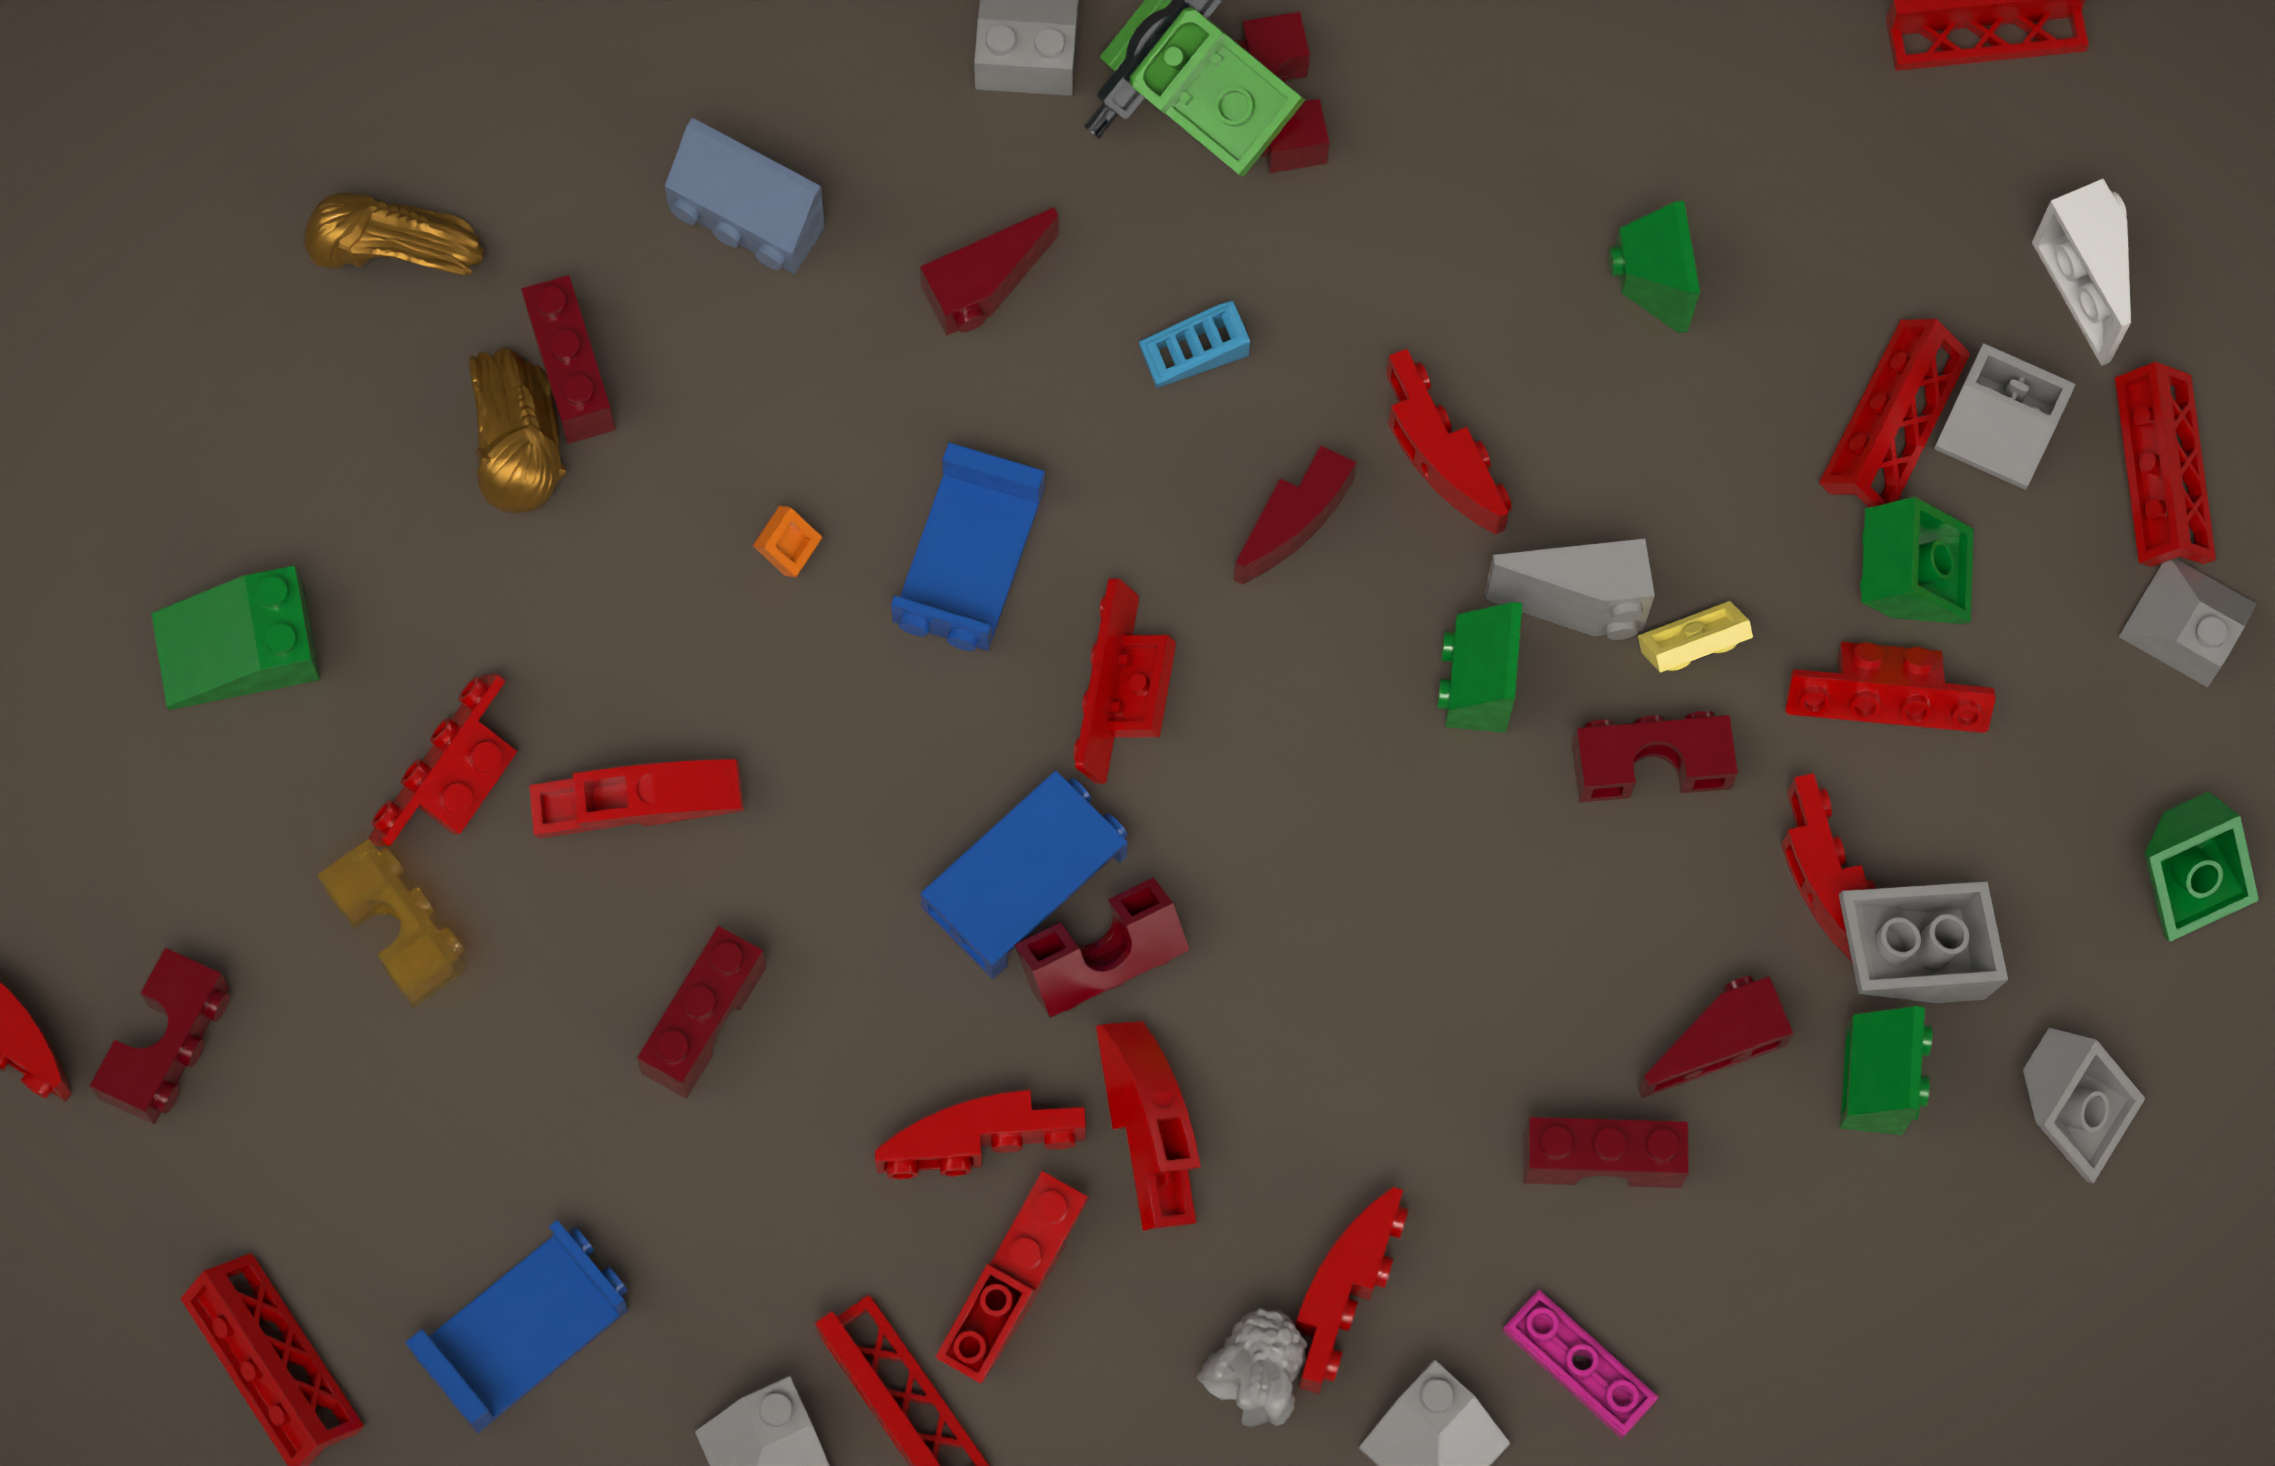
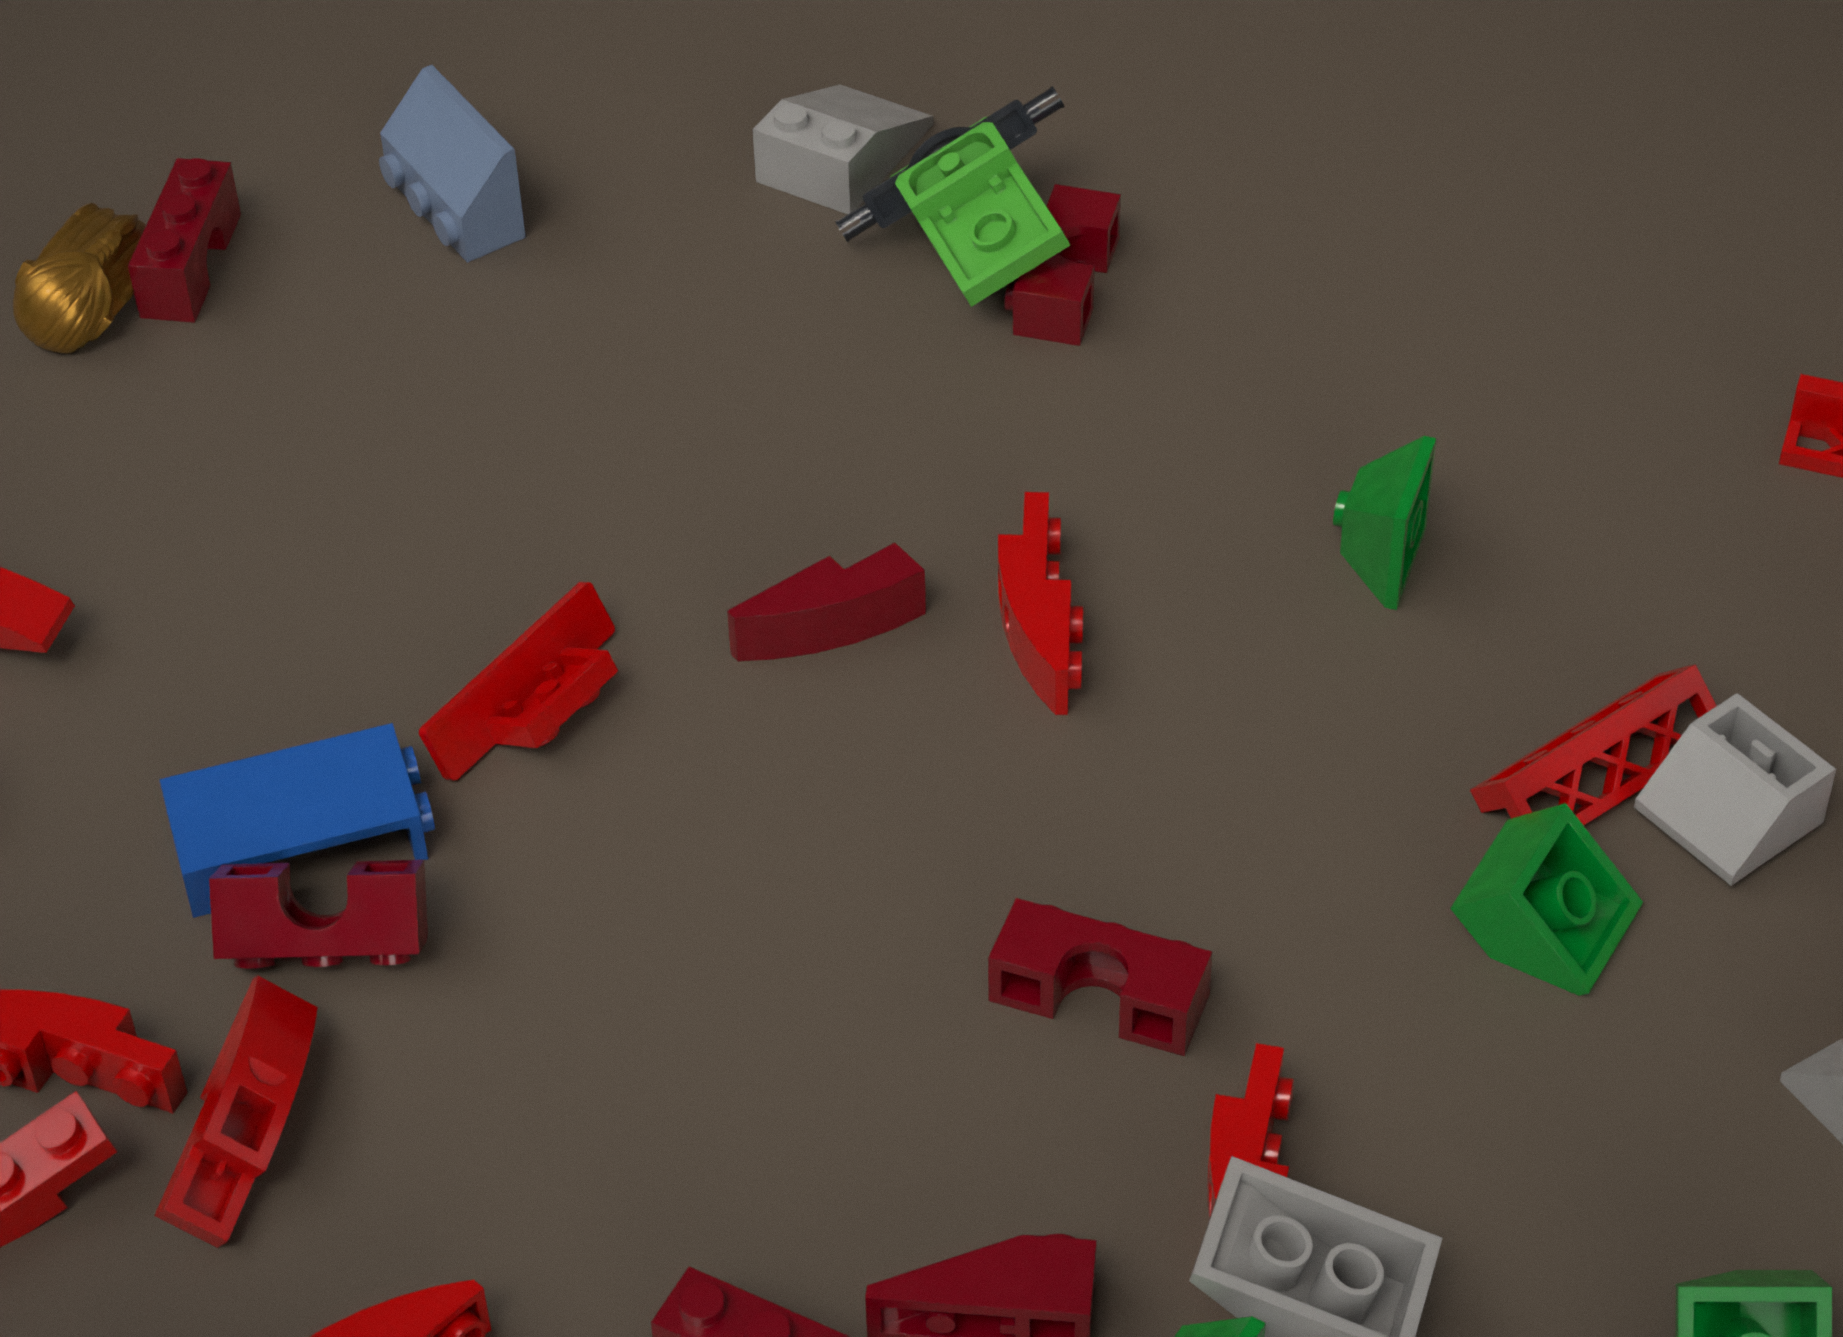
camera: 30 degrees right, 25 degrees down
(359, 228) = (71, 74): pearl gold hair -> none
(787, 541) = (279, 449): orange plate -> none
(969, 548) = (468, 525): blue panel -> none
(978, 277) = (657, 305): dark red slope -> none
(1188, 330) = (848, 434): dark azure slope -> none
(1482, 668) = (948, 812): green slope -> none
(1579, 587) = (1104, 762): light grey slope -> none
(1695, 636) = (1254, 881): light yellow plate -> none
(1890, 688) = (1440, 1017): red bracket -> none

